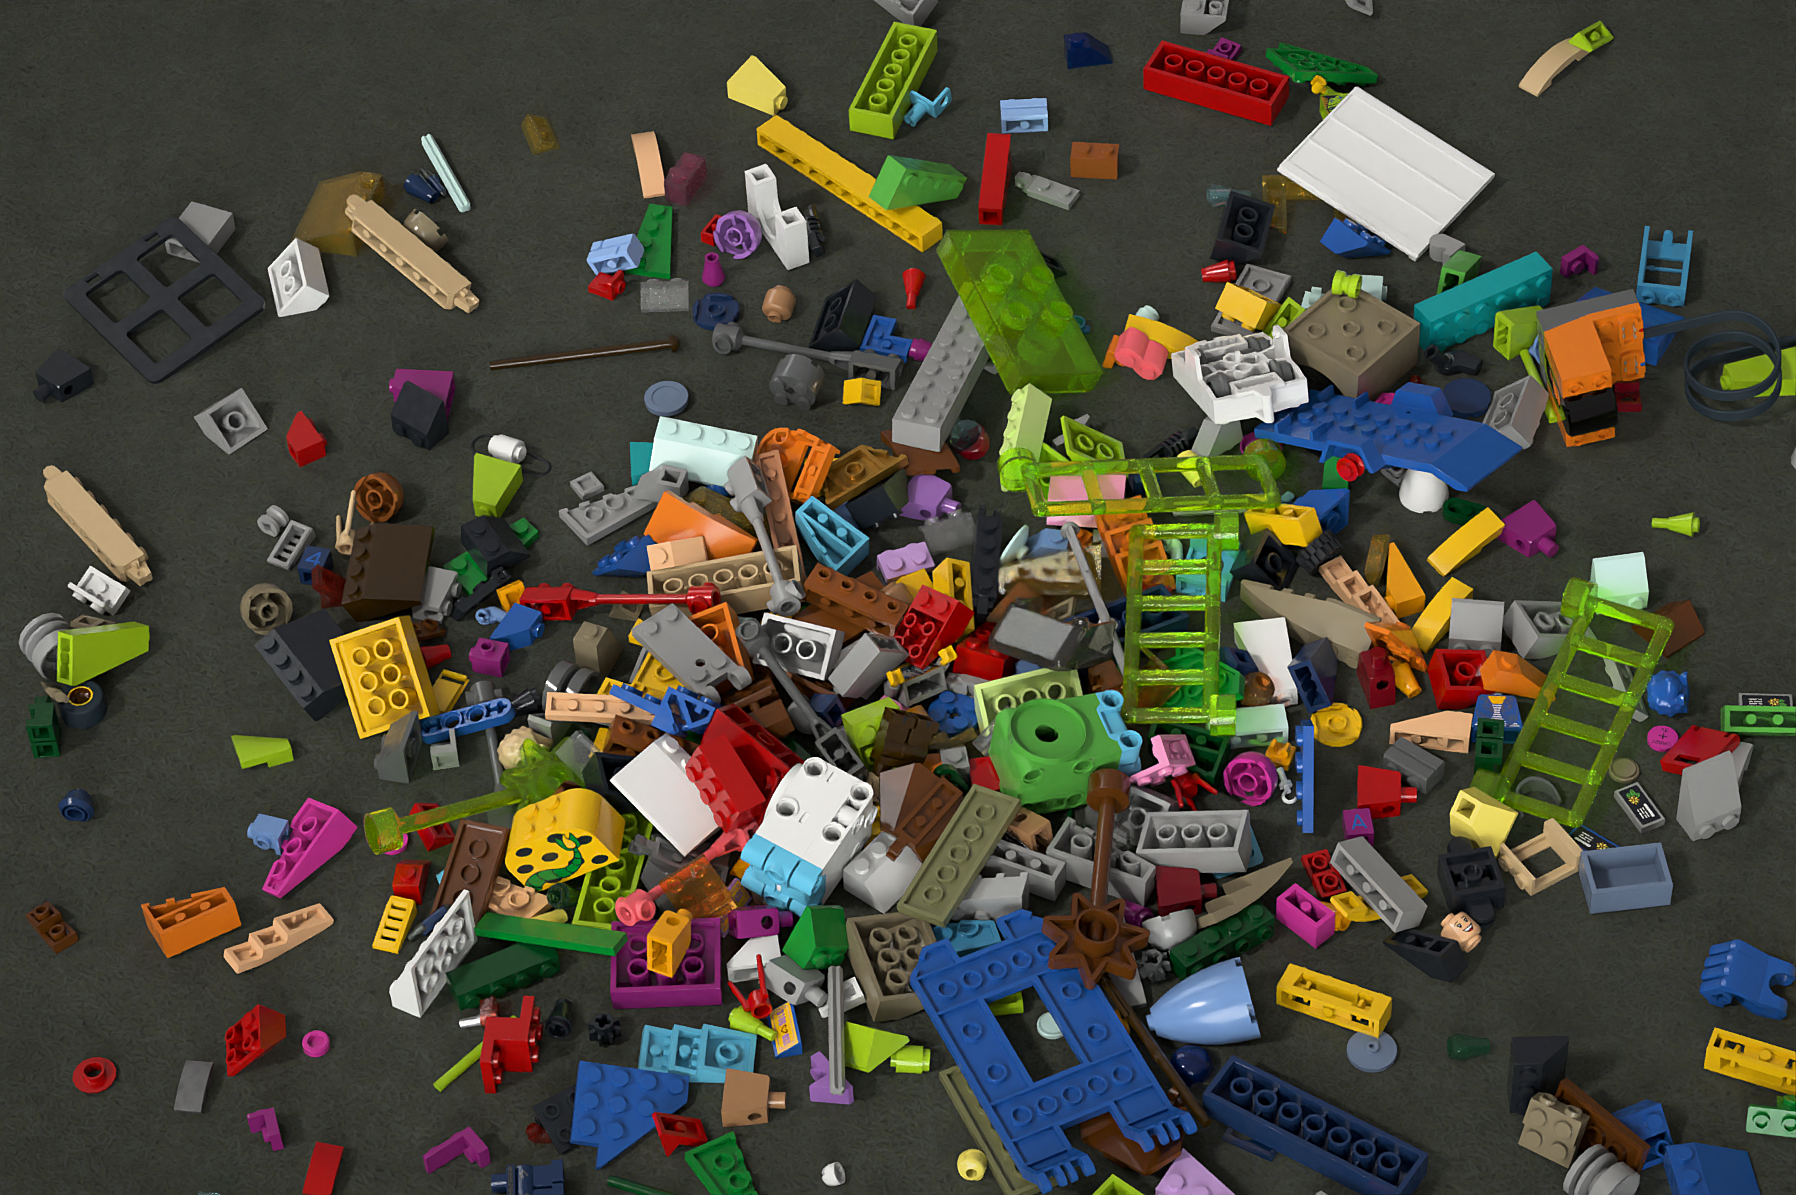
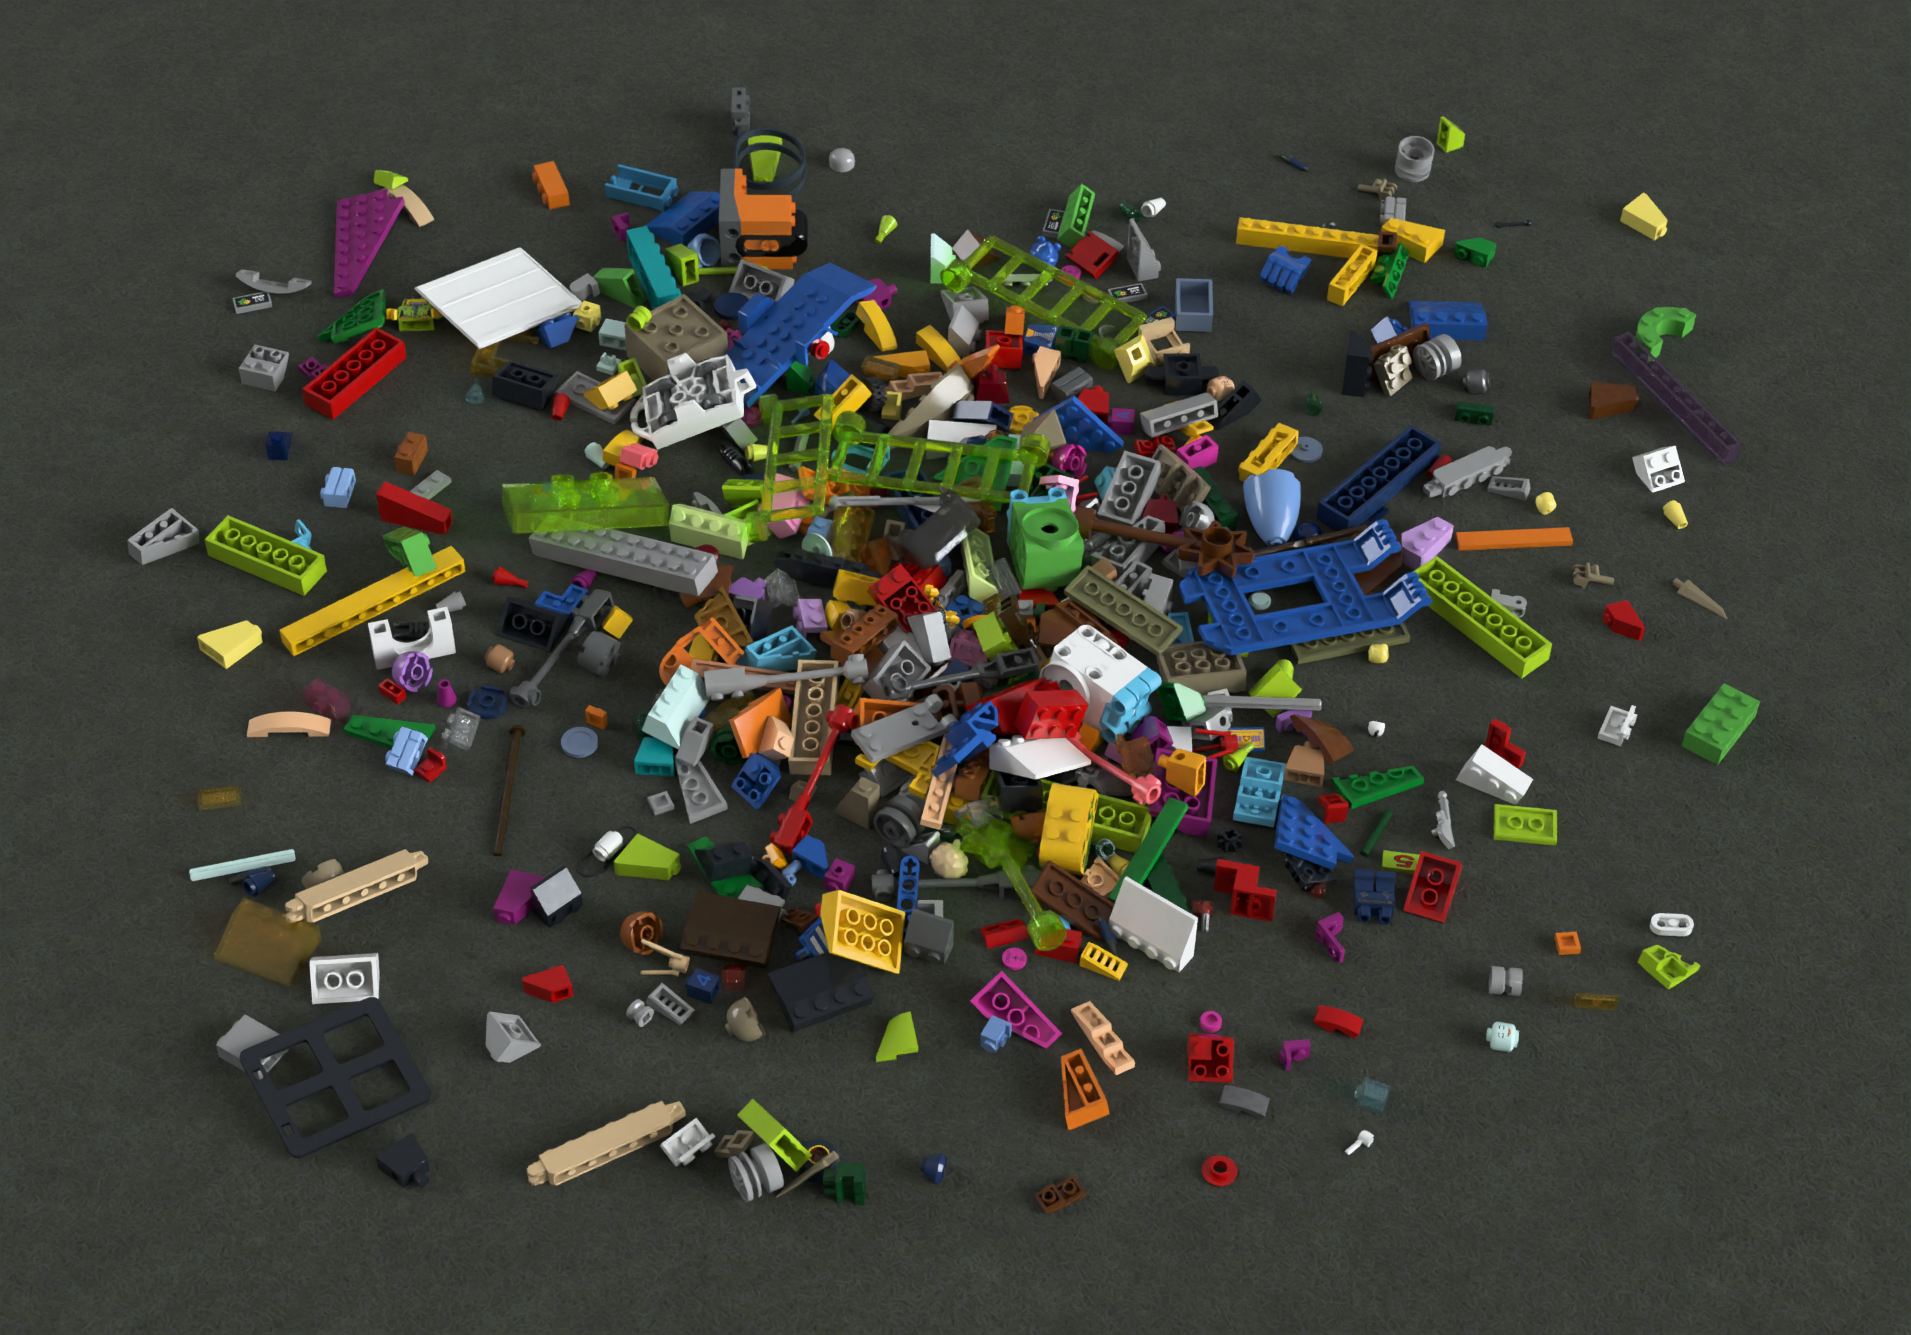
camera: 85 degrees left, 0 degrees up
(460, 1067) = (1236, 923): lime bar -> none
(703, 403) = (596, 717): none -> orange plate
(789, 1105) = (1328, 738): none -> reddish brown slope
(863, 250) = (453, 602): none -> light grey cone
(1268, 726) = (1049, 427): none -> dark tan slope
(1315, 584) = (893, 406): none -> light yellow panel
(1387, 261) = (588, 316): none -> light yellow brick
(1499, 33) = (360, 231): none -> magenta wing
(1636, 182) = (550, 185): none -> orange brick

